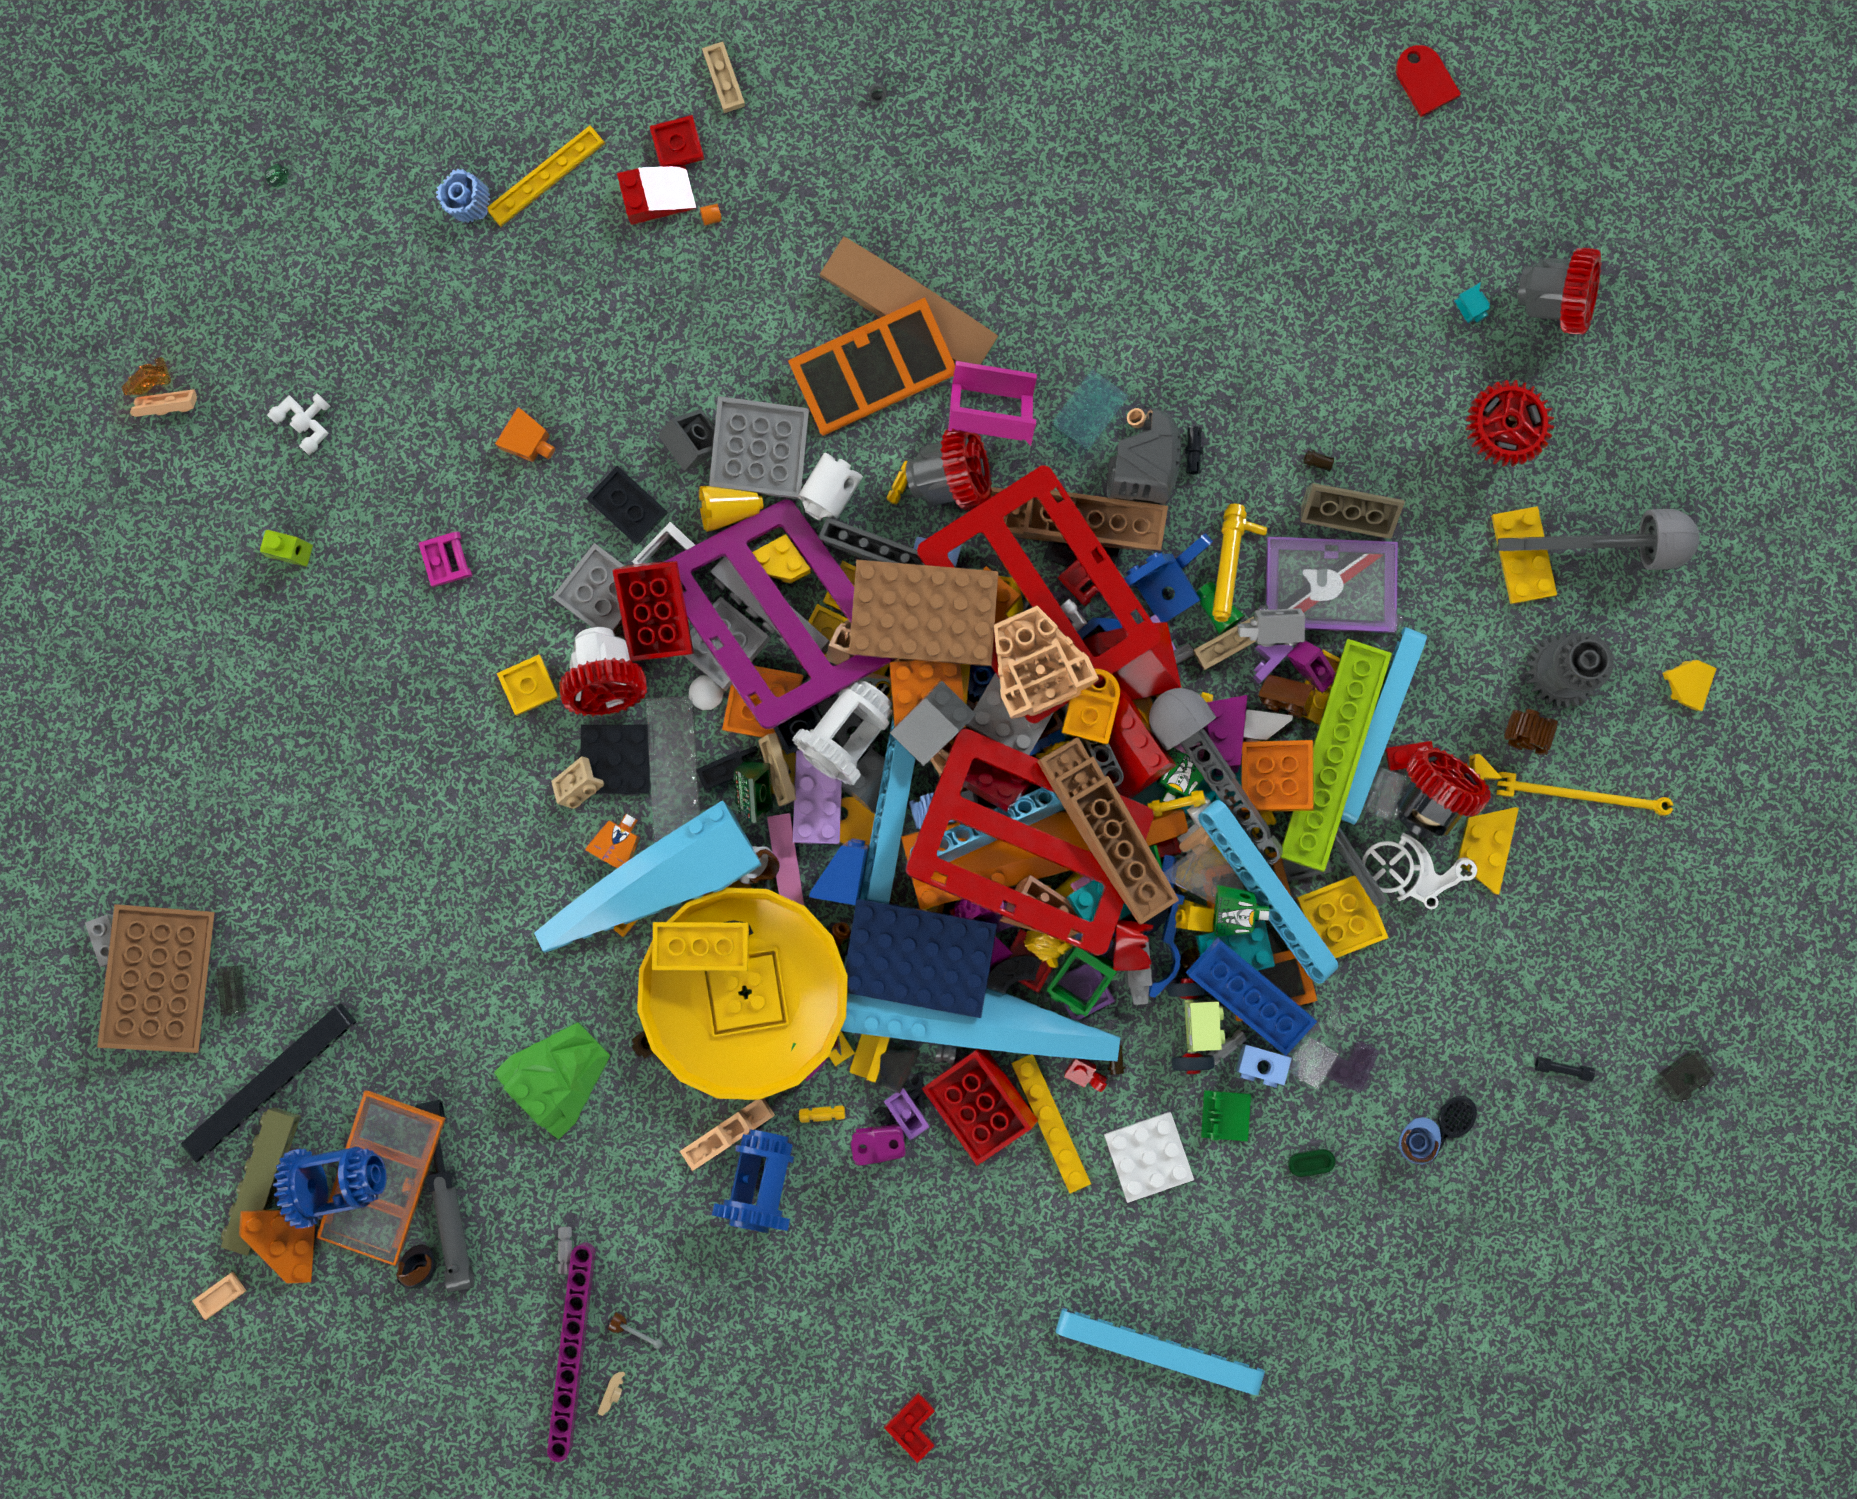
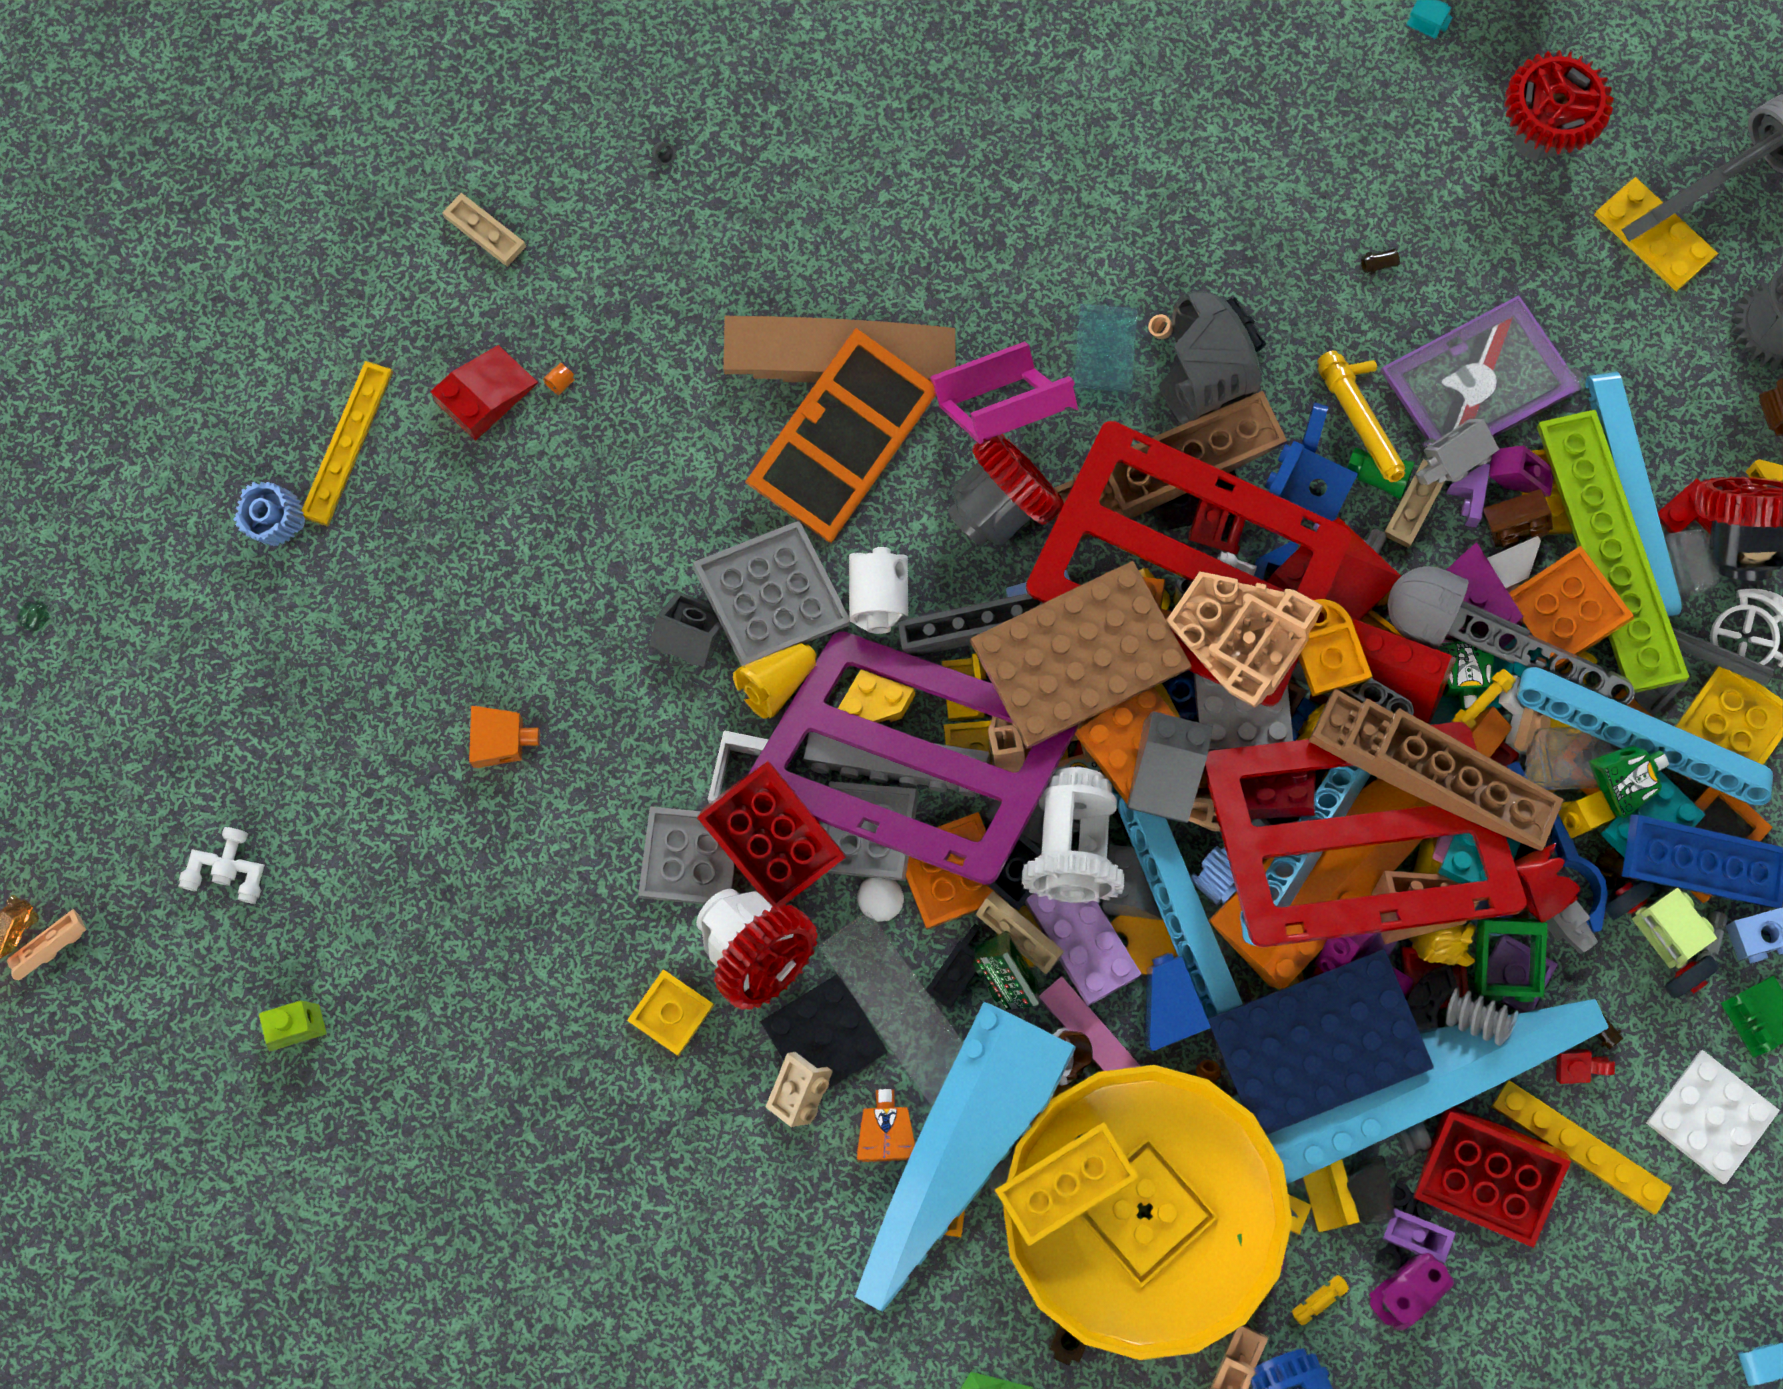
camera: 30 degrees left, 10 degrees down
(437, 560) = (481, 936): dark pink plate -> none
(626, 505) = (660, 744): black plate -> none
(677, 142) = (474, 324): red plate -> none
(898, 486) = (950, 542): yellow axle -> none
(1033, 1005) = (1480, 1017): none -> light grey piece
(1351, 510) = (1451, 287): dark tan slope -> none

